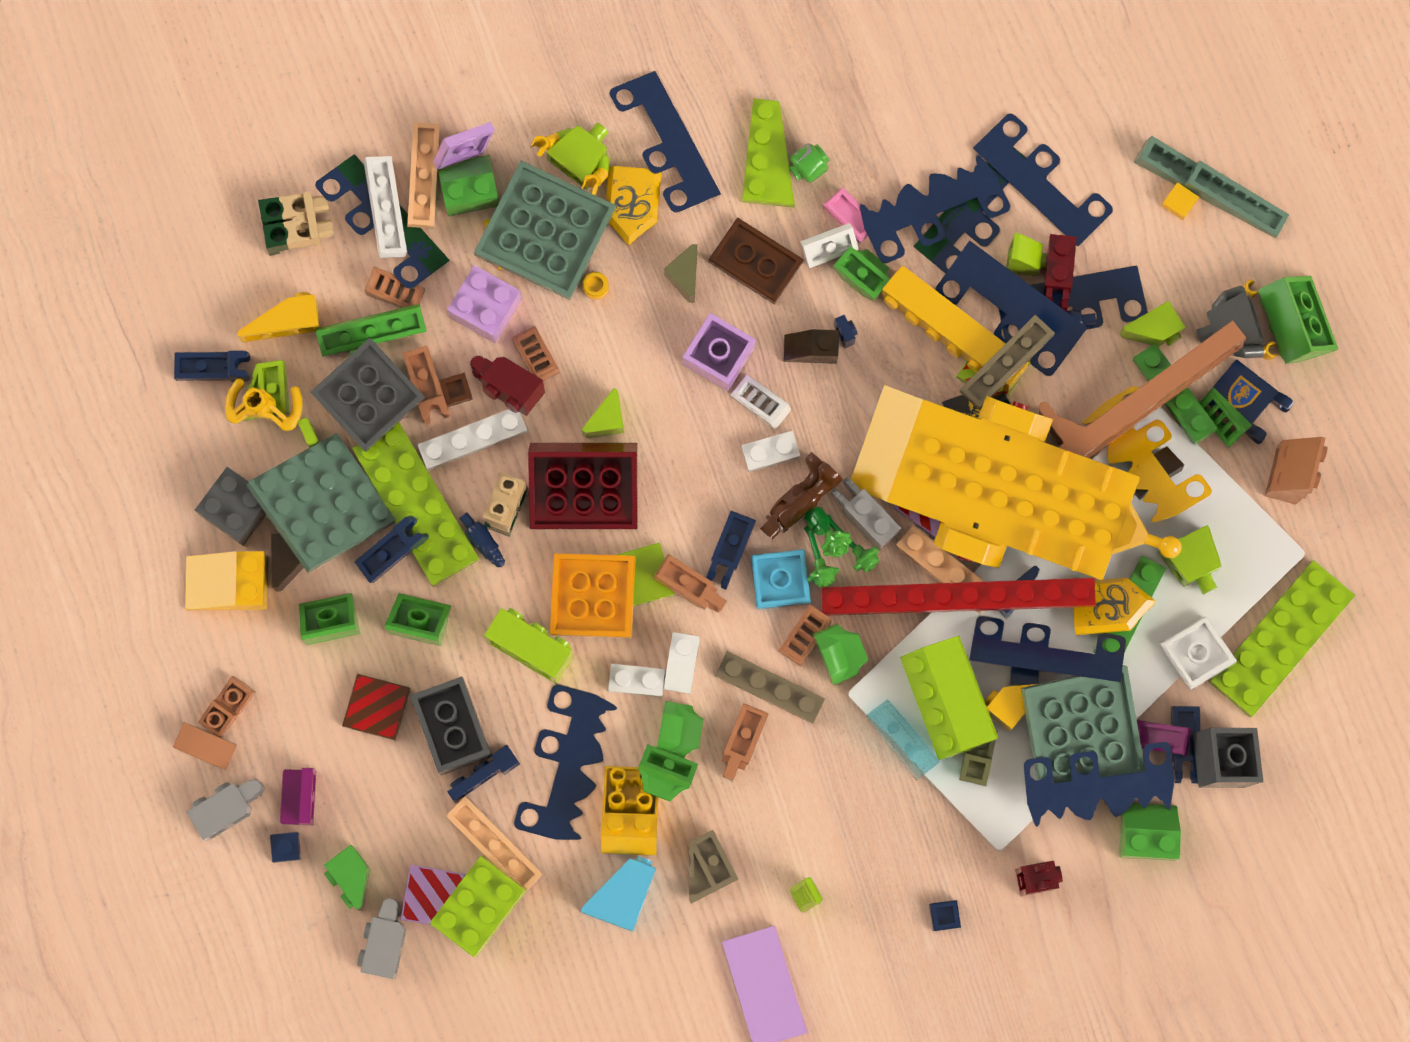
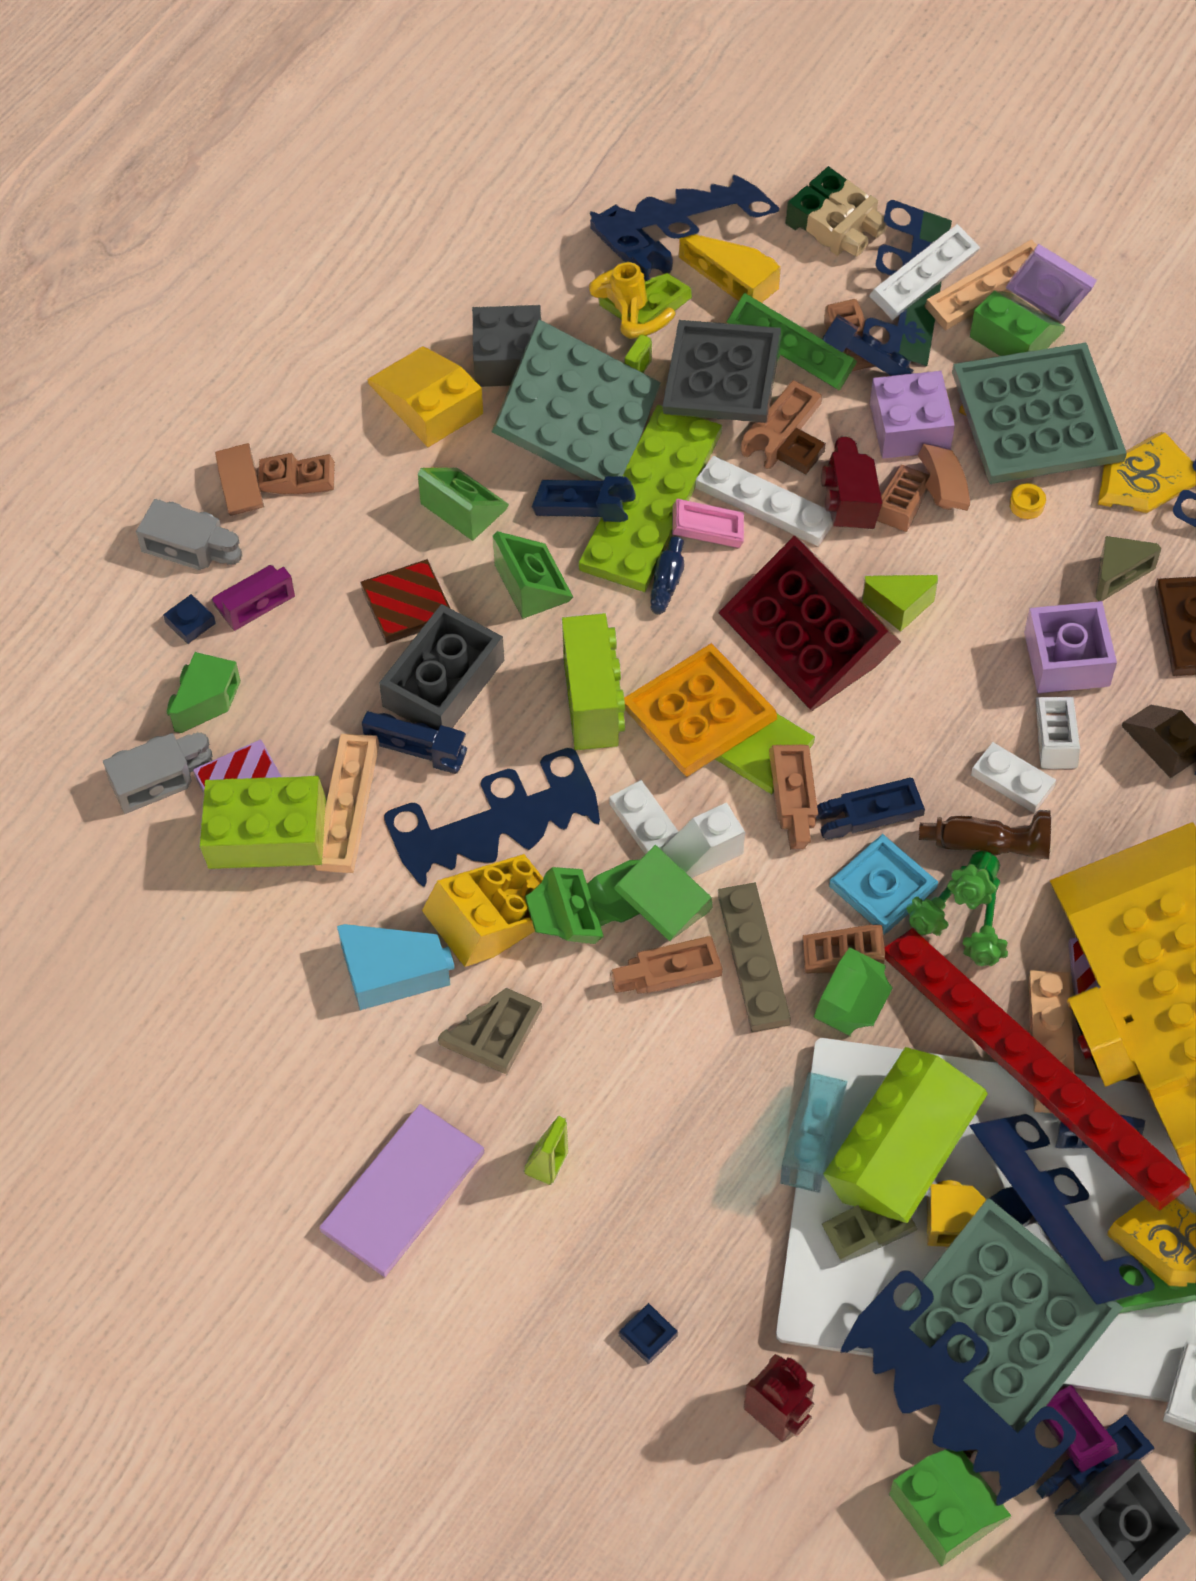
camera: 55 degrees right, 20 degrees down
(209, 331) = (688, 202): none -> dark blue piece
(284, 563) = (475, 425): dark brown slope -> none
(420, 292) = (843, 335): none -> dark blue plate
(465, 487) = (708, 523): none -> bright pink tile
(504, 504) = (720, 557): tan hips -> none
(551, 324) = (946, 478): none -> nougat slope
(577, 154) = (1143, 389): lime torso -> none
(702, 712) = (664, 894): none -> bright green slope
(867, 515) = (1034, 917): light grey hinge -> none

